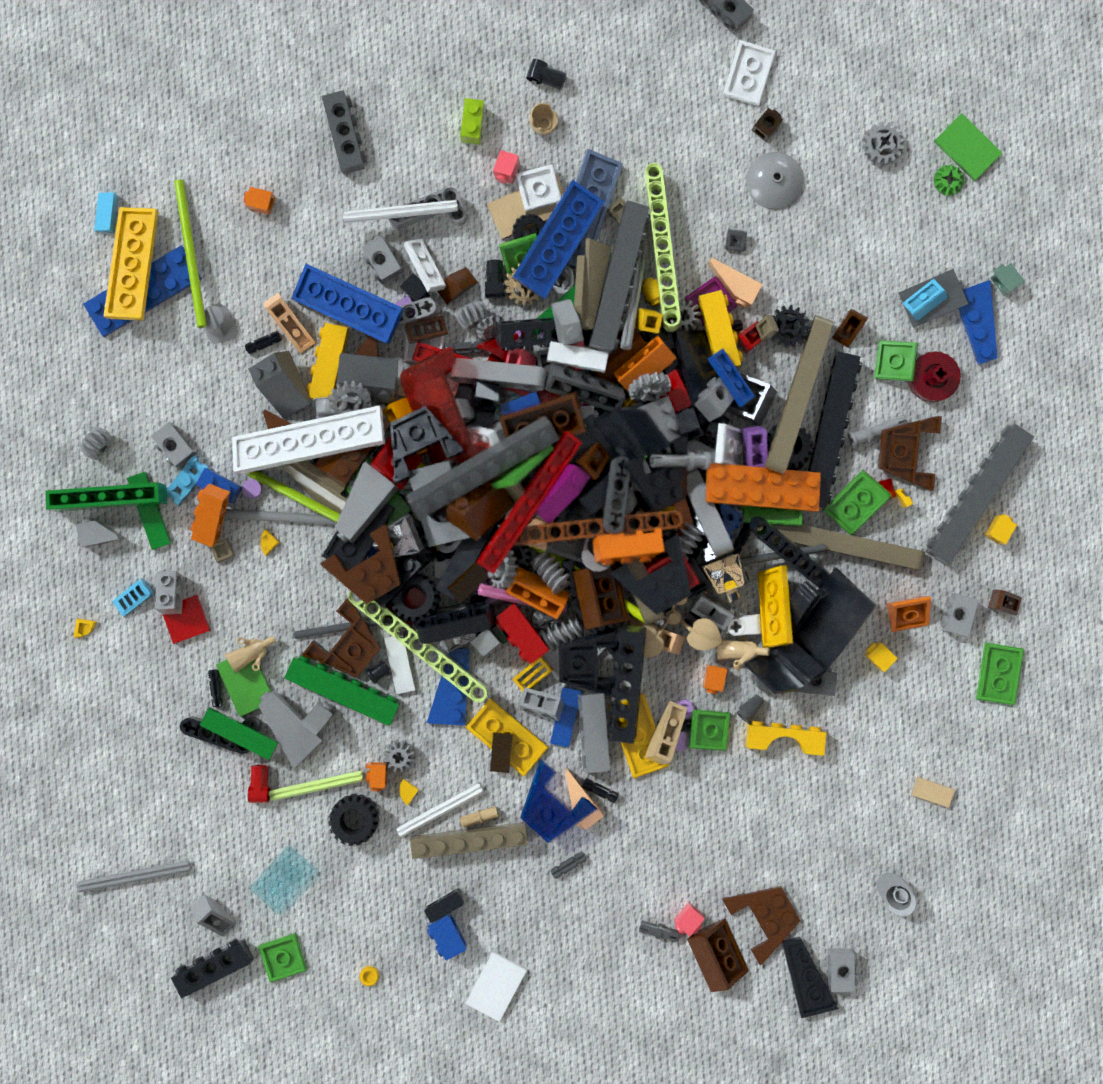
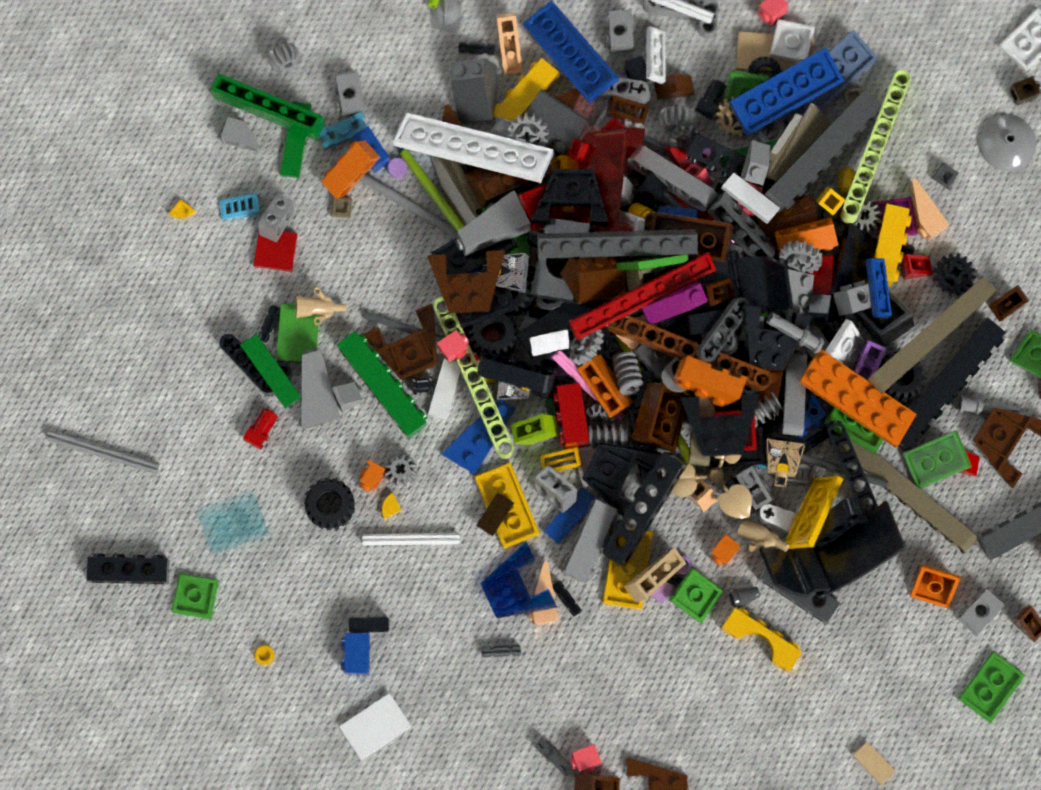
camera: 25 degrees right, 10 degrees down
(212, 915) = (154, 523): light grey slope -> none
(268, 542) = (386, 221): yellow tile -> none
(316, 785) = (311, 457): yellowish green axle -> none
(386, 630) = (453, 346): none -> coral brick
(402, 392) = (578, 150): none -> red tile
(469, 840) = (423, 578): dark tan brick -> none
(479, 817) = (443, 563): tan axle -> none
(484, 643) = (533, 406): light grey slope -> none
(488, 420) = (643, 212): none -> yellow brick
(496, 662) = (535, 429): none -> lime brick
(633, 302) = (825, 178): light grey axle -> none
(767, 327) = (933, 264): dark tan tile -> none
(880, 656) = (888, 610): yellow brick -> none
(904, 501) = (982, 482): yellow tile -> none

